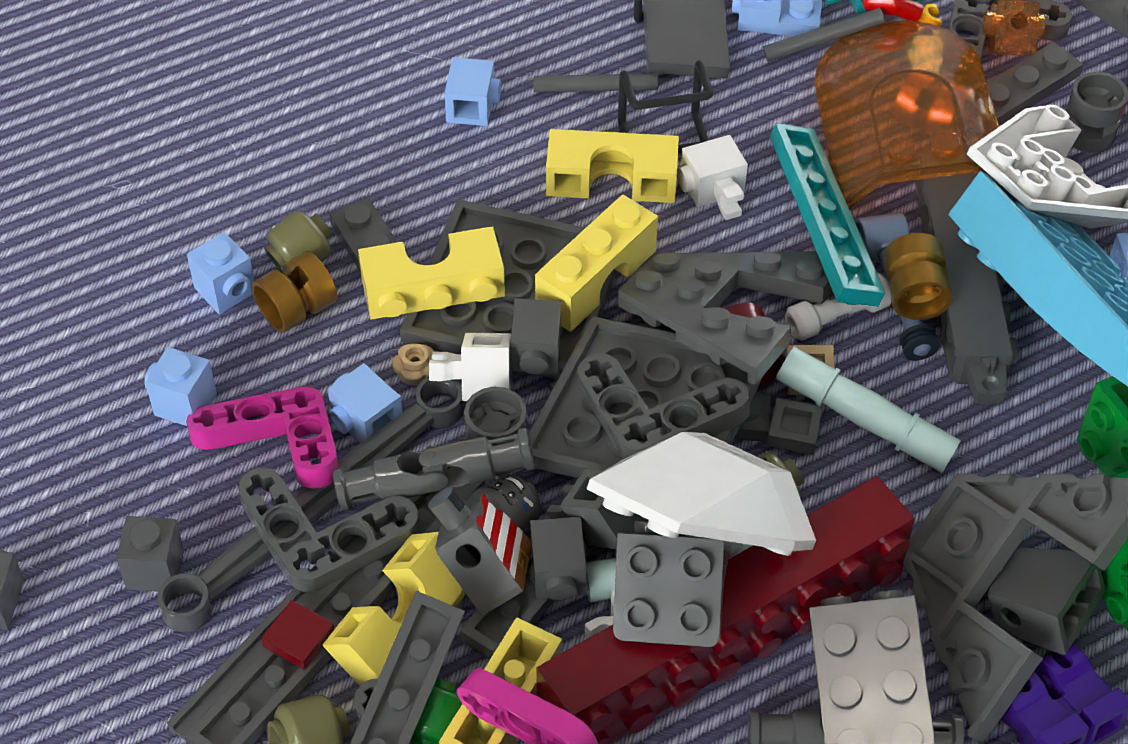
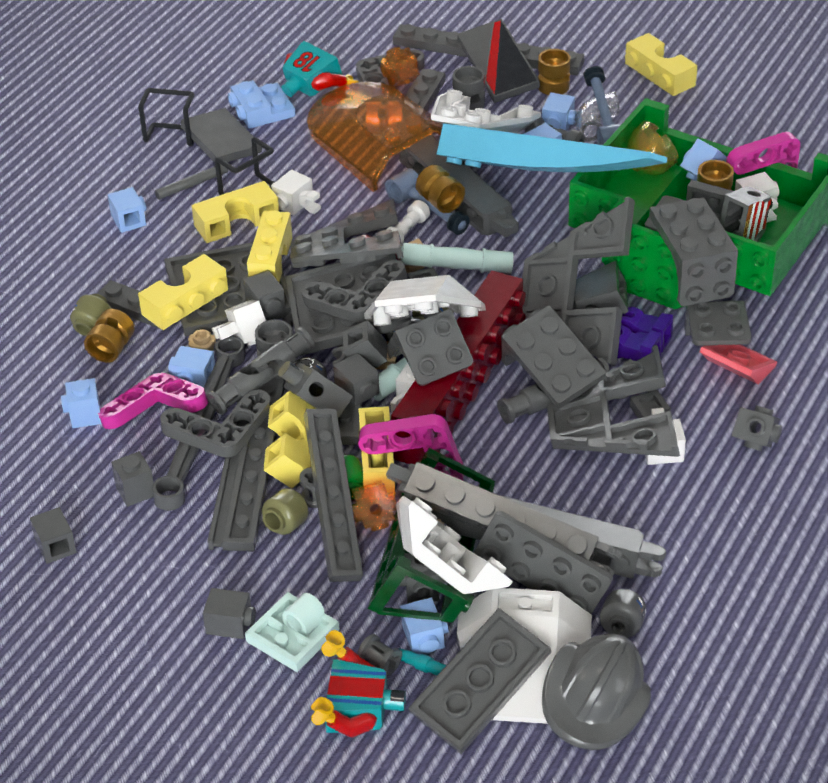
camera: 30 degrees left, 10 degrees down
(221, 272) = (59, 344): light blue brick -> none
(297, 634) = (246, 472): dark red tile -> none
(823, 34) = (300, 110): dark grey bar -> none
(827, 216) = (370, 184): teal plate -> none

